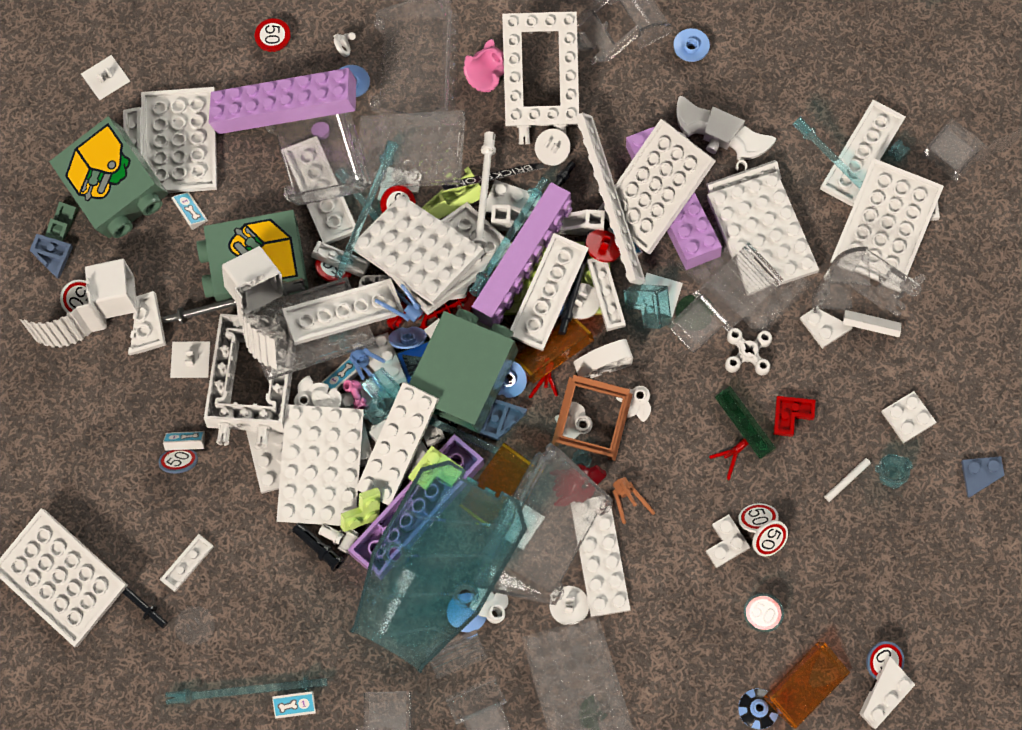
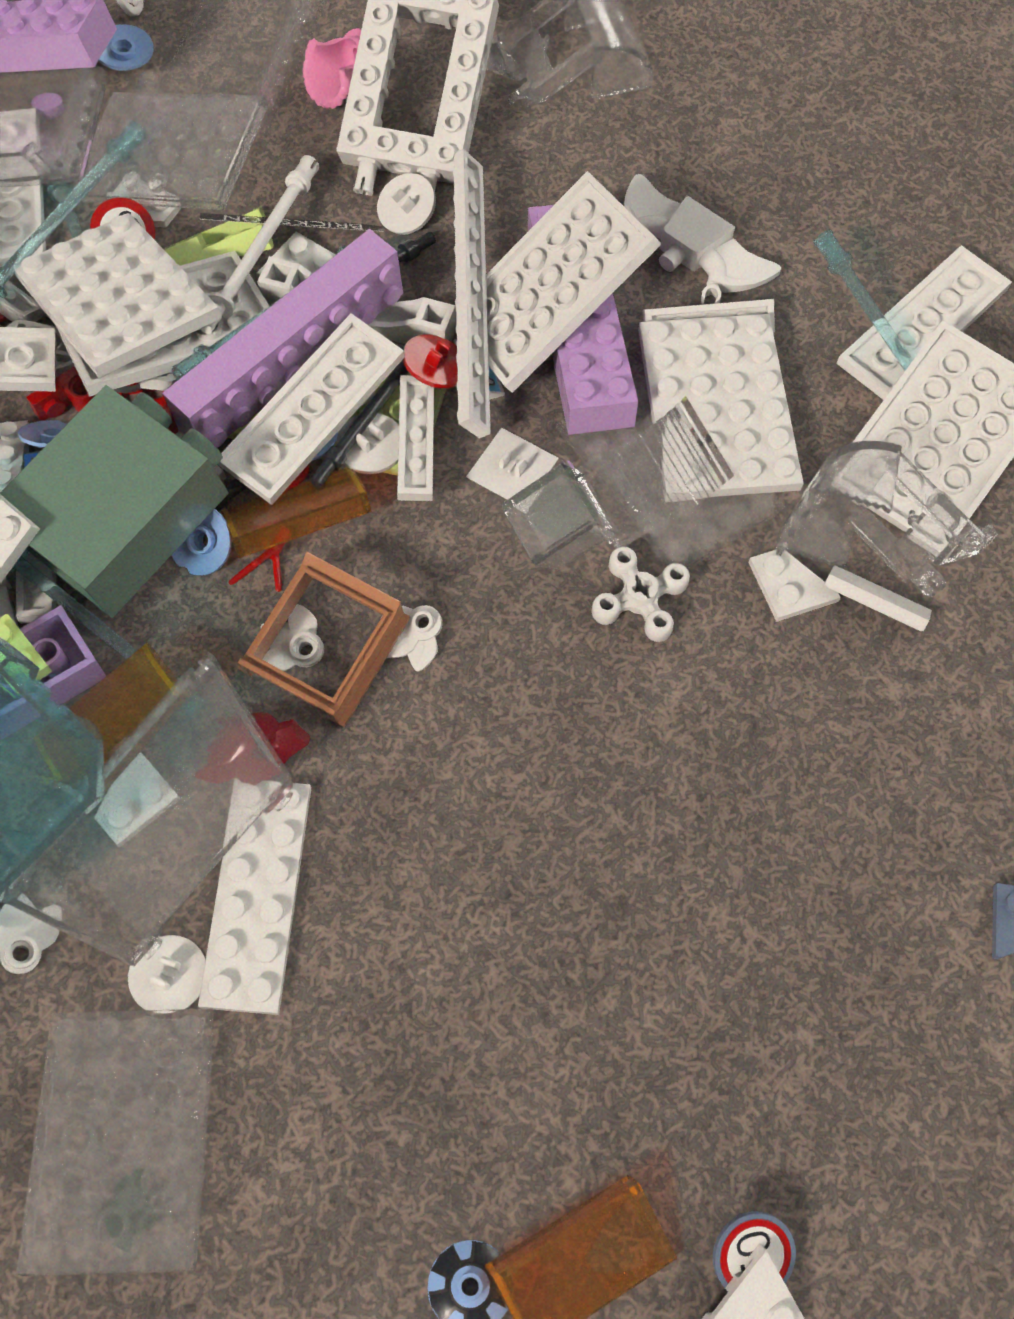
camera: 10 degrees right, 5 degrees down
(413, 309) = (67, 384): medium blue plant -> none
(501, 419) = (163, 605): sand blue wing -> none
(582, 456) = (278, 703): clear light blue wheel -> none
(603, 359) = (379, 543): white beam -> none
(625, 488) = (340, 780): nougat plant -> none
(652, 301) = (493, 472): clear light blue panel -> none
(693, 38) = (678, 107): light blue dish -> none
(732, 542) = (512, 934): white plate -> none
(734, 451) = (567, 762): red plant -> none
(745, 422) = (600, 717): clear green slope -> none
(756, 515) = (575, 896): piece -> none
(763, 612) = (534, 1086): piece -> none
(770, 538) = (586, 940): piece -> none
(789, 409) = (690, 710): red plate -> none
(847, 479) = (765, 867): white bar -> none
(894, 470) = (859, 870): clear light blue cap -> none
(899, 151) = (989, 330): clear light blue wheel -> none
(908, 417) = (909, 779): white plate -> none

